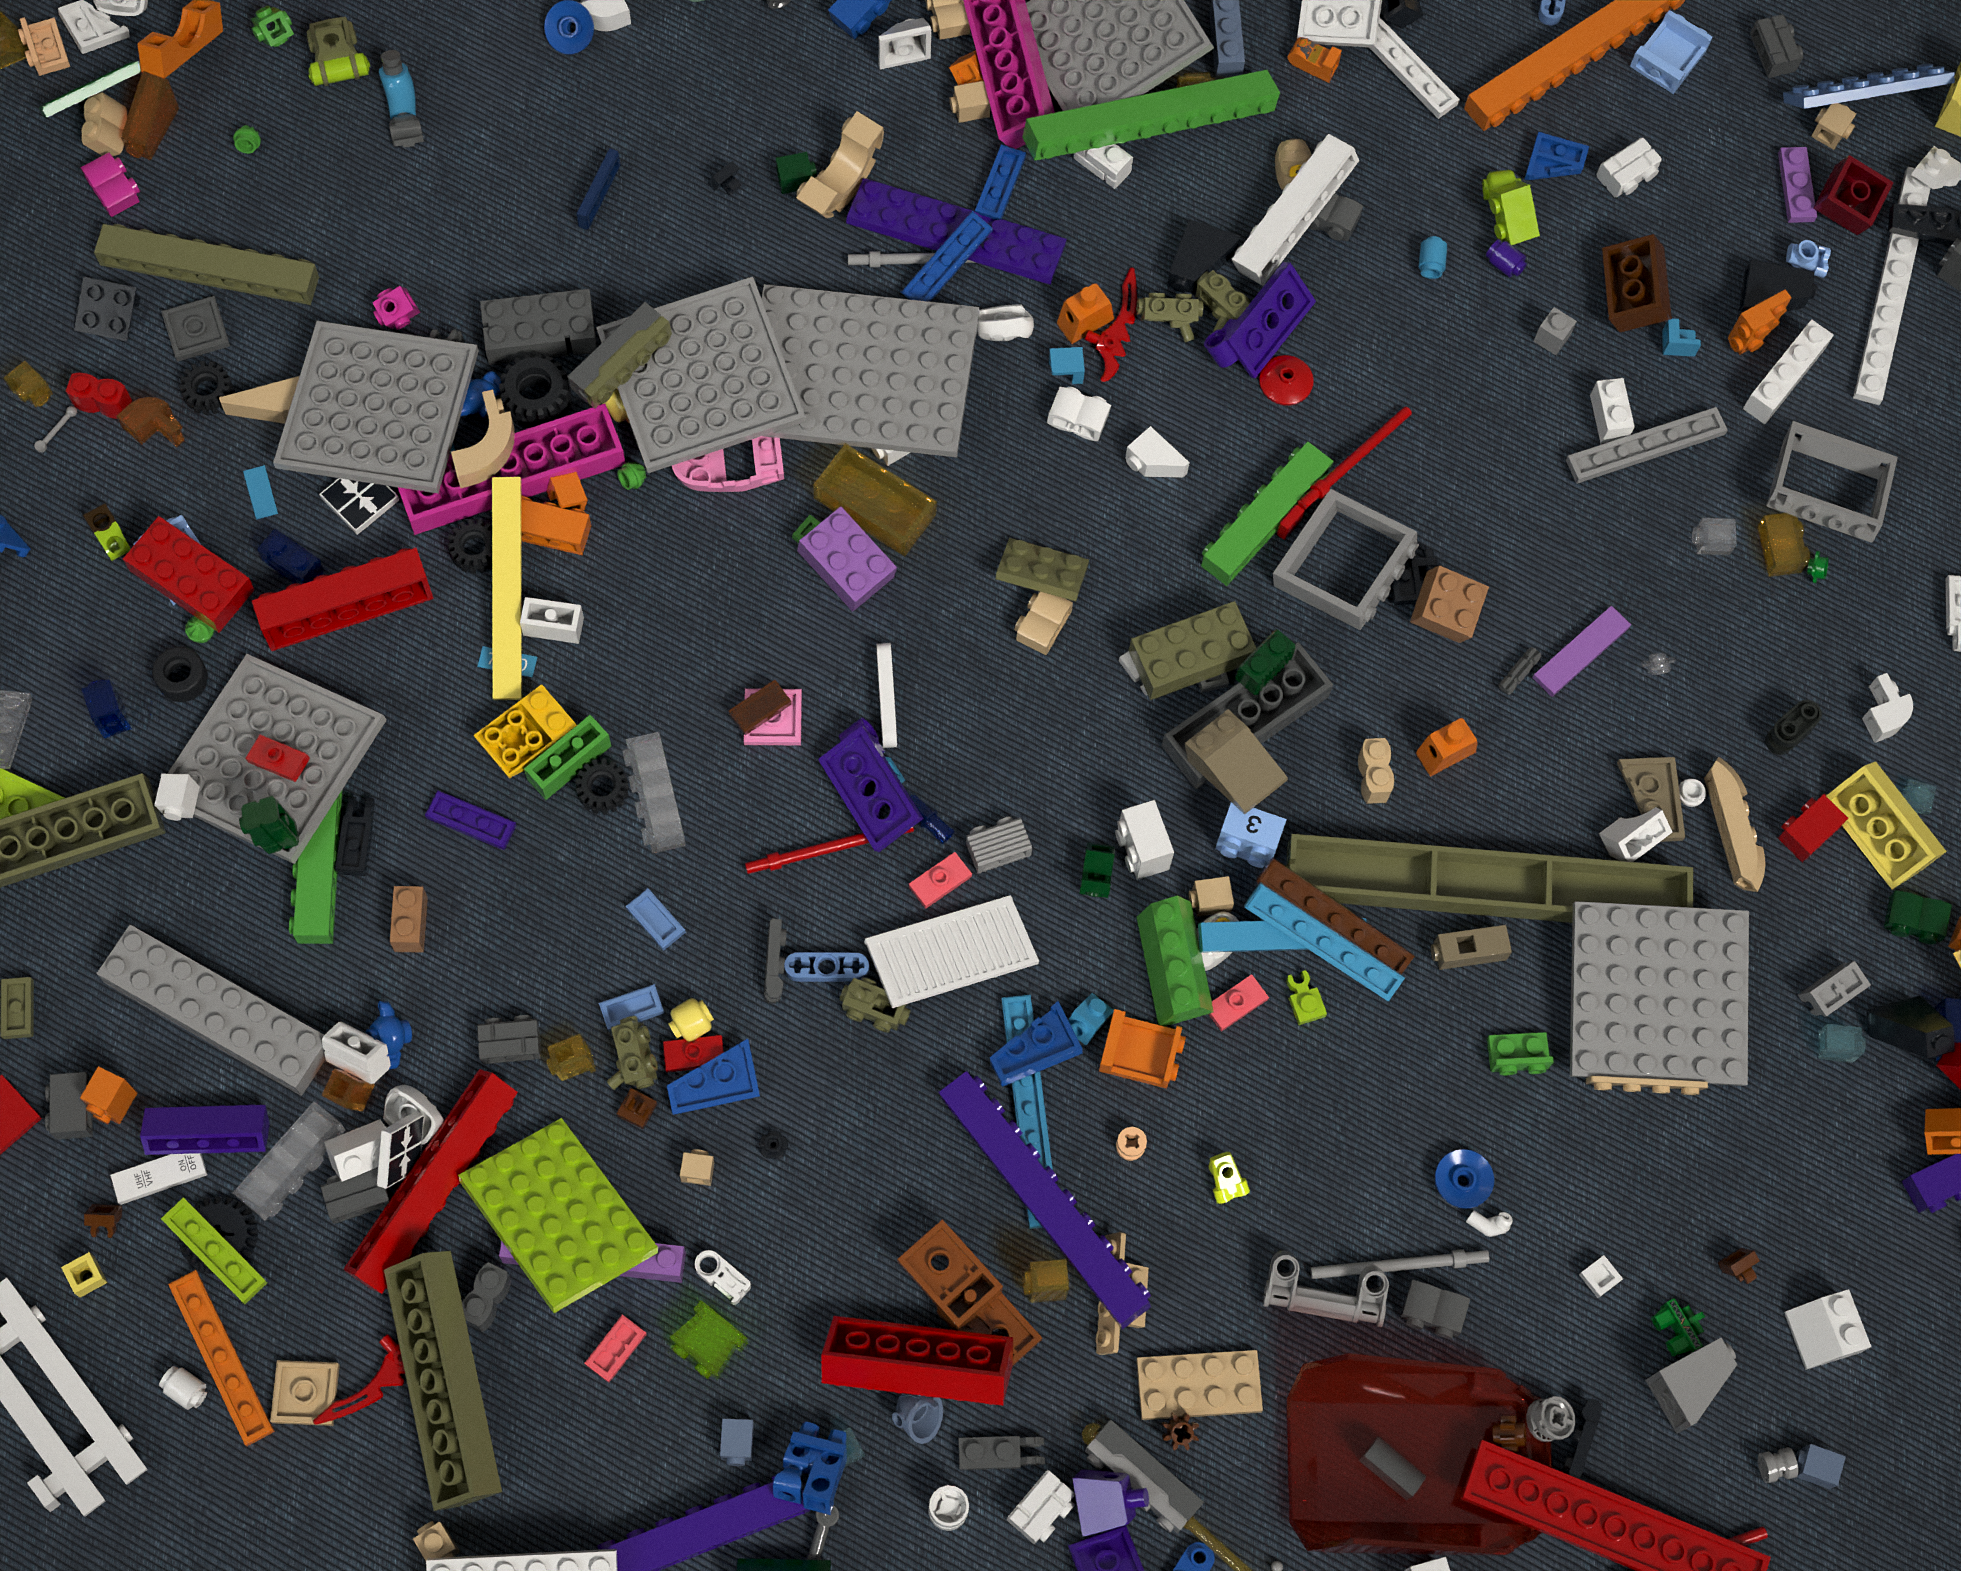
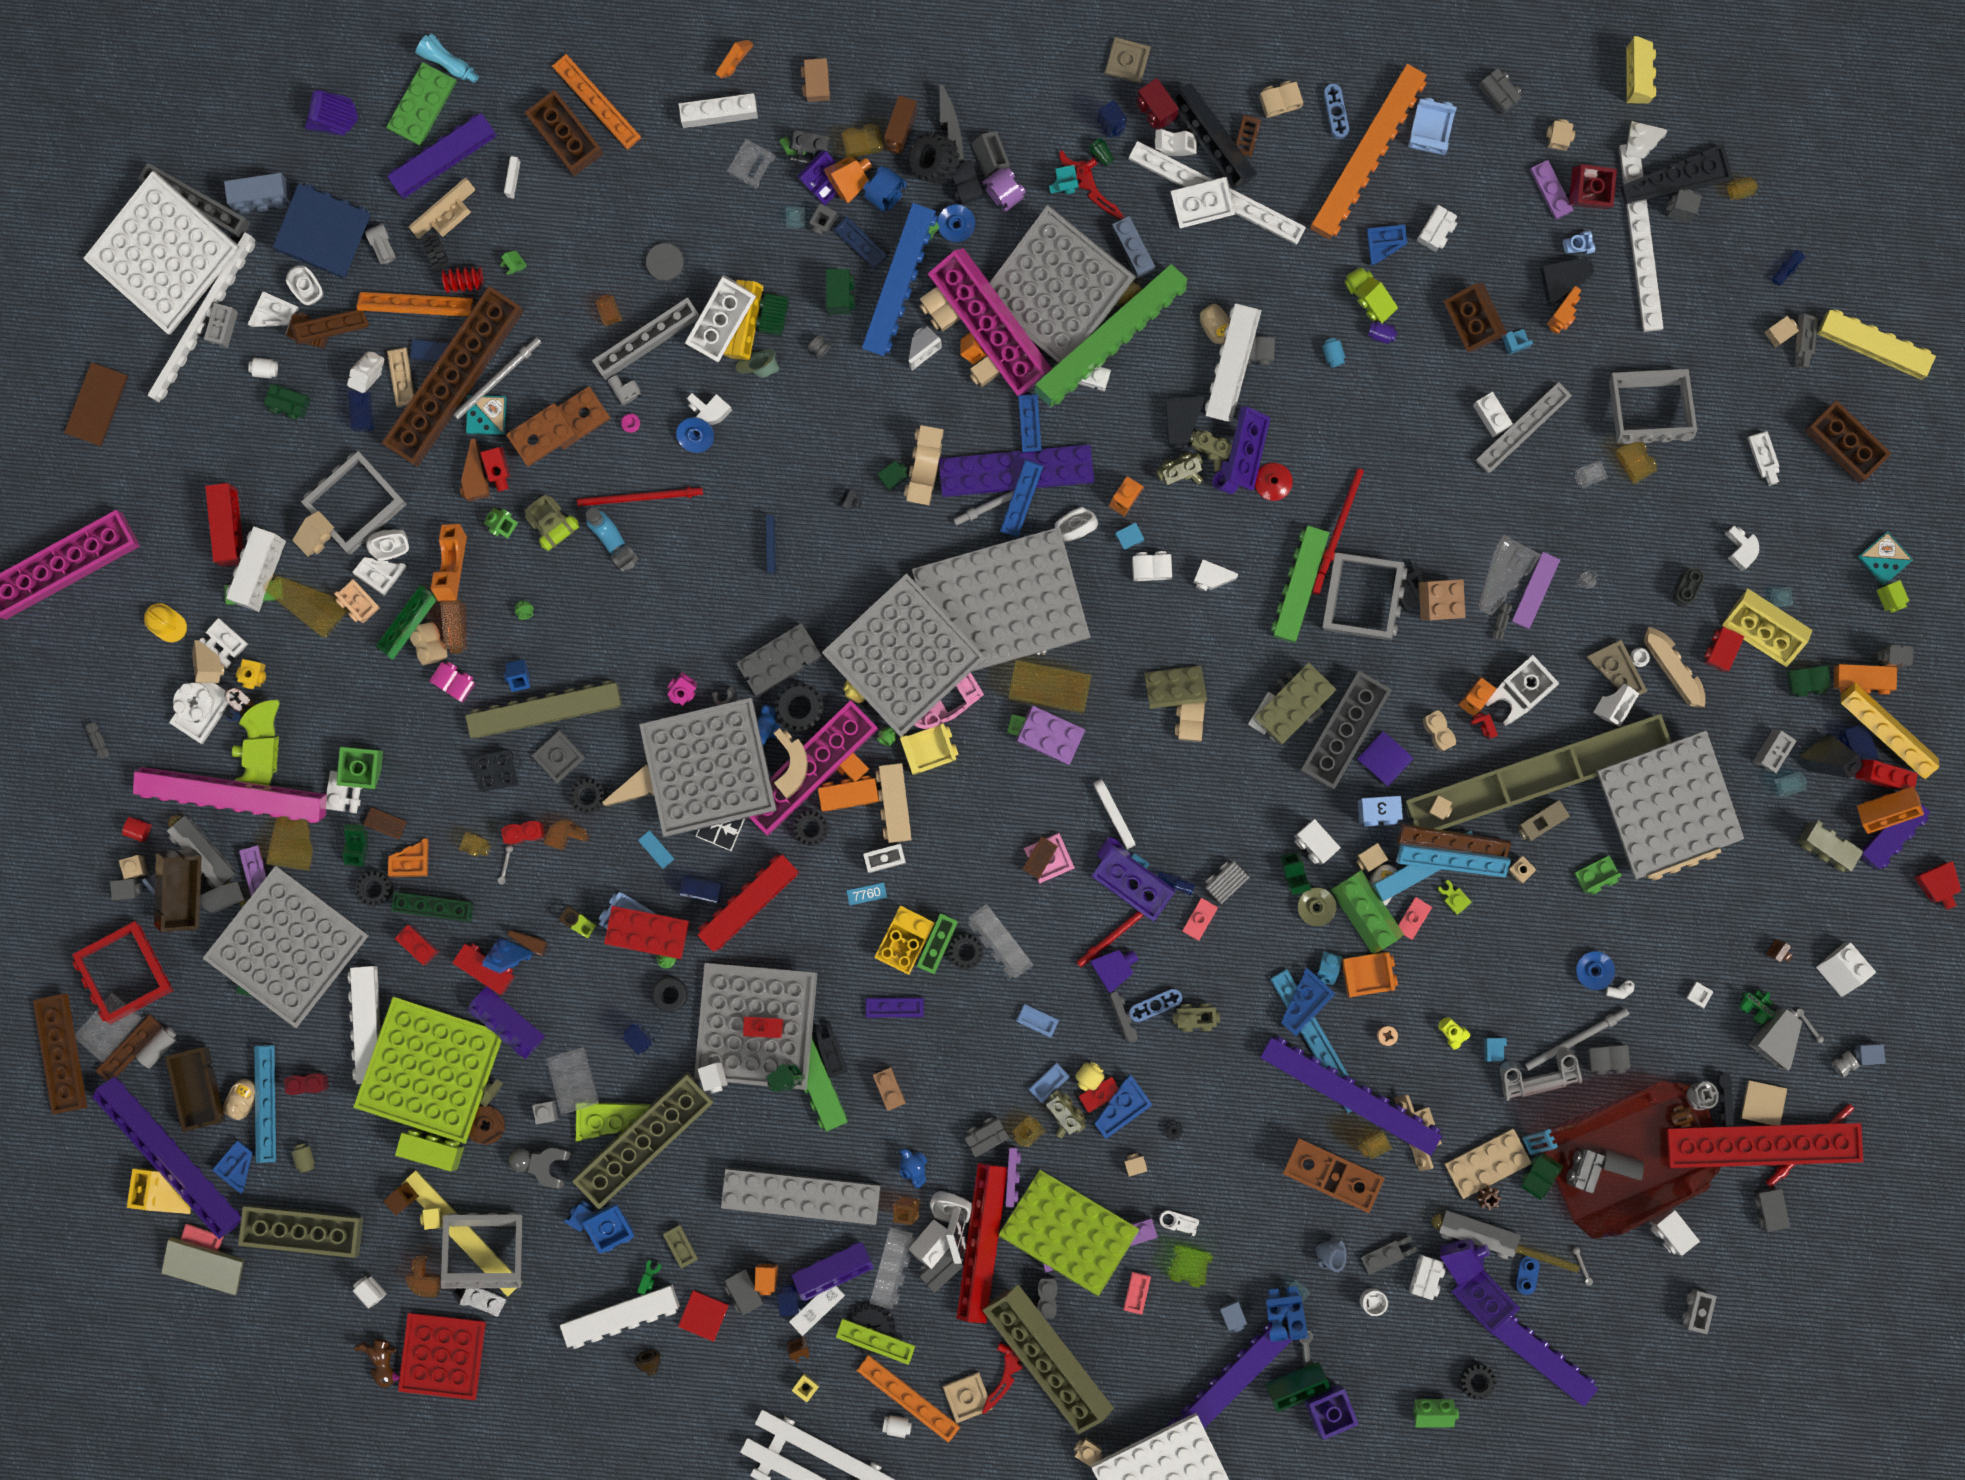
camera: 15 degrees left, 15 degrees up
(38, 537) = (534, 944): none -> reddish brown slope
(121, 1140) = (789, 1300): none -> clear blue brick
(195, 207) = (517, 675): none -> blue brick
(356, 1052) = (901, 1187): white brick -> none
(506, 588) = (846, 850): light yellow tile -> none
(518, 1110) = (1013, 1177): none -> medium lavender plate
(526, 91) = (640, 496): none -> red bar
(600, 557) = (894, 802): none -> tan brick
(620, 355) = (849, 668): piece -> none
(636, 1108) = (1081, 1143): reddish brown tile -> none
(679, 514) = (929, 748): none -> light yellow panel
(792, 891) = (1114, 968): none -> dark purple torso
(917, 1360) = (1320, 1227): red brick -> none
(951, 951) = (1228, 964): white window -> none
(1108, 915) = (1324, 900): none -> olive dish
(1109, 341) = (1148, 506): red piece -> none
(1234, 761) = (1355, 774): dark tan slope -> none
(1265, 662) = (1345, 696): dark green brick -> none
(1269, 1431) = (1541, 1176): none -> dark green brick
(1276, 1227) = (1494, 1049): none -> dark azure panel
(1299, 1379) = (1550, 1146): none -> dark azure tile
(1302, 781) = (1385, 759): none -> dark purple slope
(1314, 58) = (1197, 237): orange leg -> none
(1335, 867) = (1440, 808): none -> tan plate
(1336, 1449) = (1585, 1170): none -> dark grey brick
(1411, 1008) = (1514, 869): none -> tan plate
(1444, 789) = (1487, 728): none -> red bracket
(1505, 766) = (1518, 694): none -> white brick
(1555, 331) = (1434, 372): light grey brick -> none
(1555, 605) = (1508, 565): none -> clear wedge
(1636, 1470) = (1763, 1103): none -> tan tile
(1752, 1415) = (1800, 1012): none -> light grey hinge
(1788, 371) = (1595, 335): white brick -> none
(1818, 567) = (1664, 467): green plate -> none
(1866, 1149) = (1829, 846): none -> wedge
(1874, 85) = (1574, 99): medium blue plate -> none

